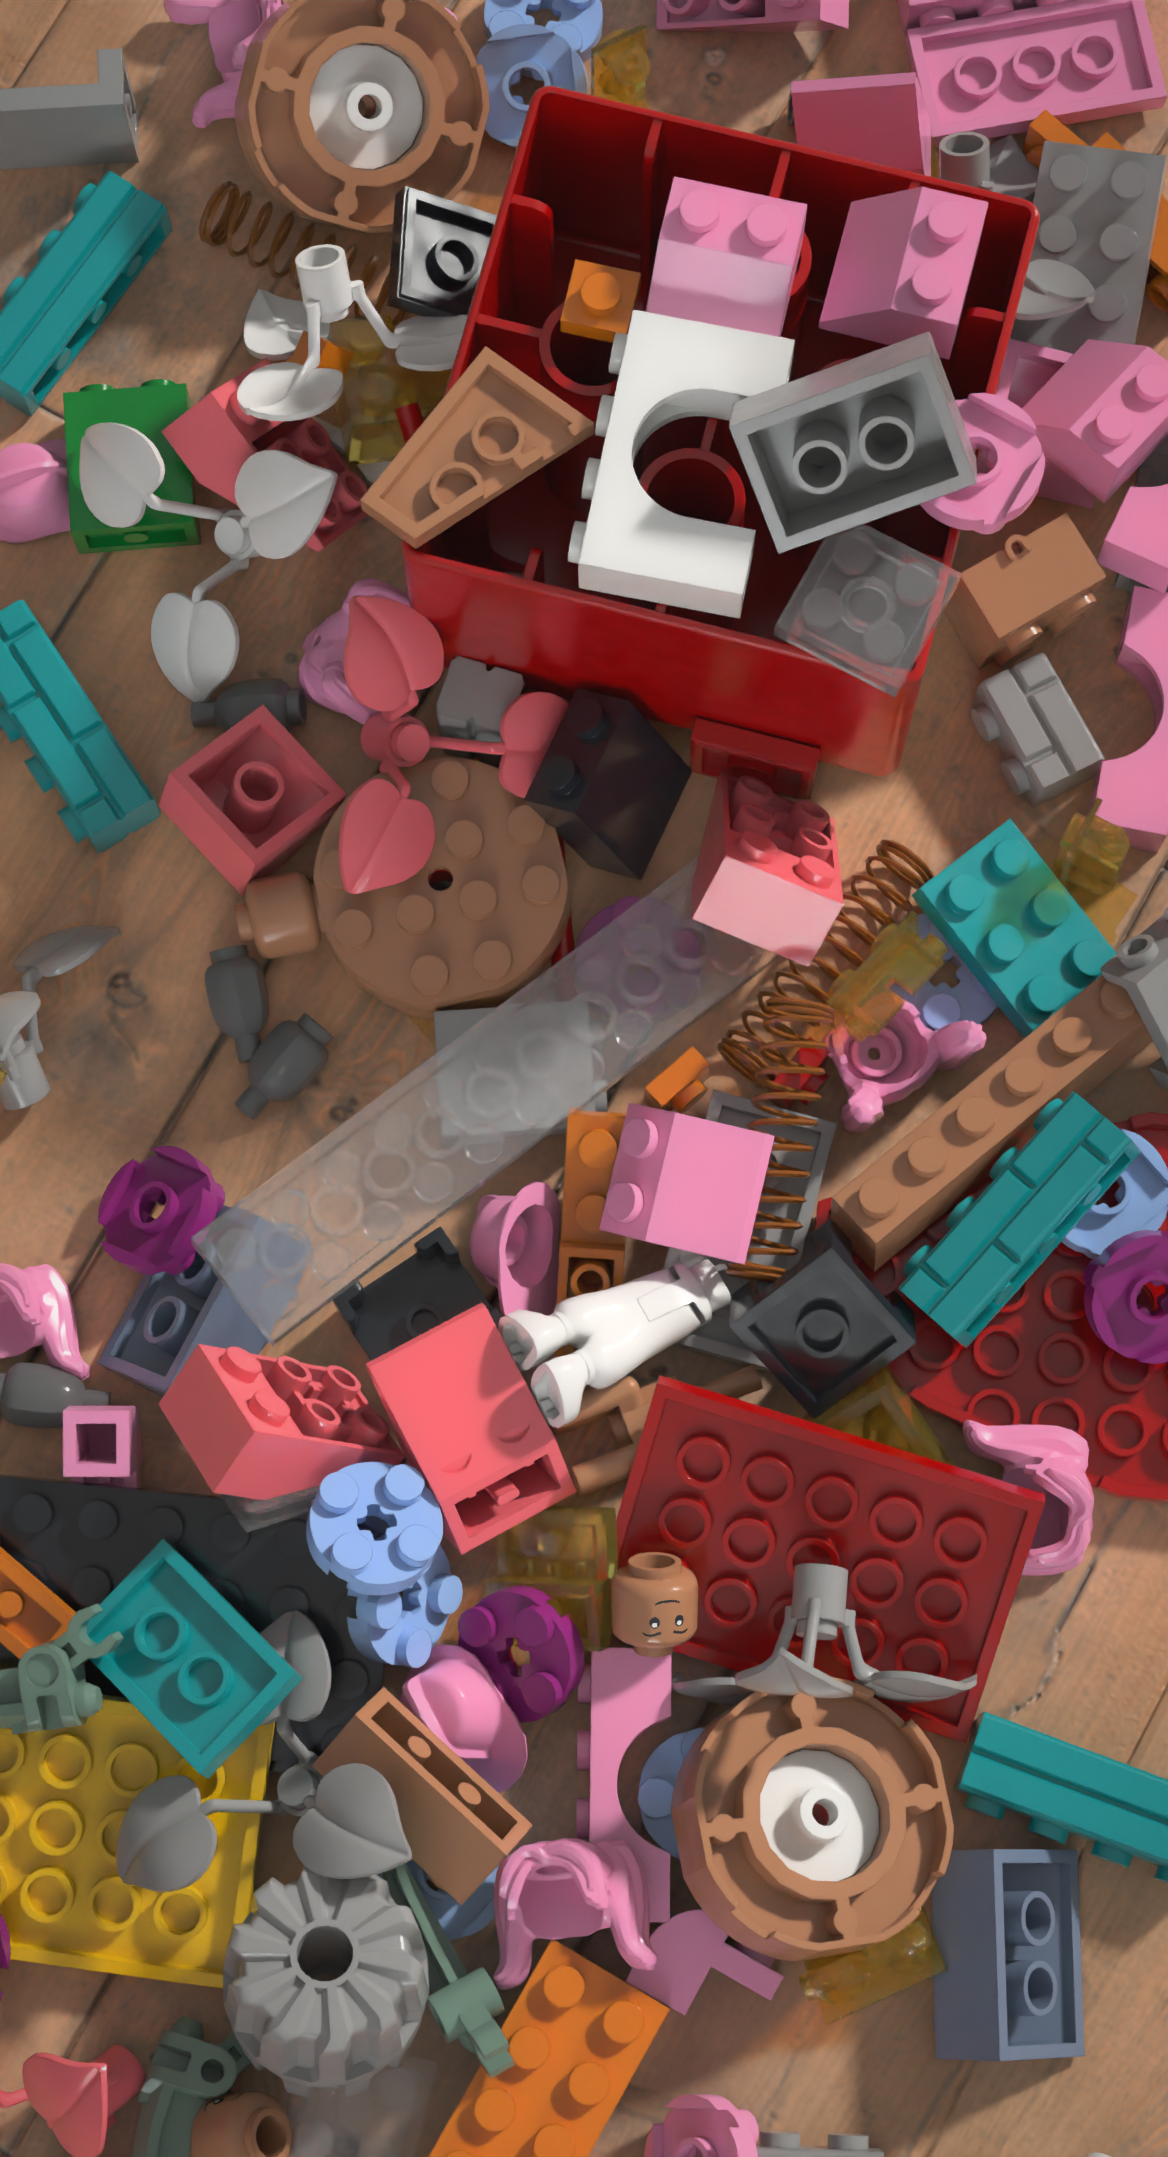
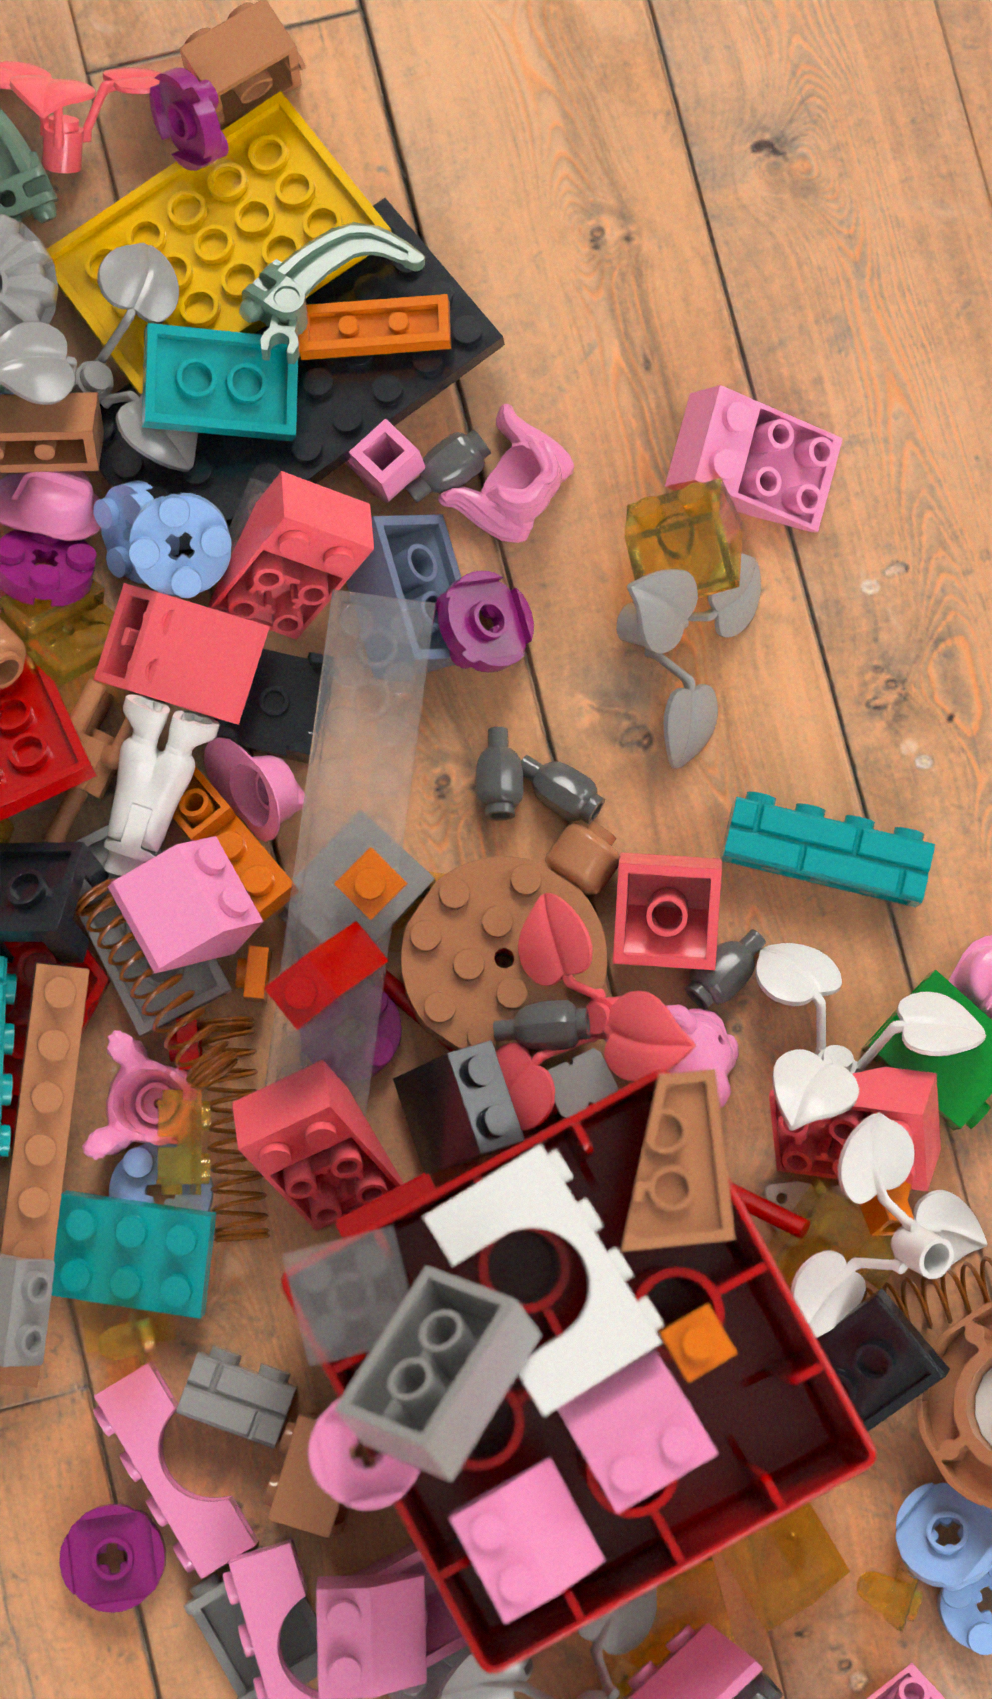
camera: 130 degrees right, 5 degrees up
(463, 772) = (545, 1026): none -> dark grey plant
(498, 1041) = (371, 883): none -> orange plate
(622, 983) = (326, 975): none -> red slope

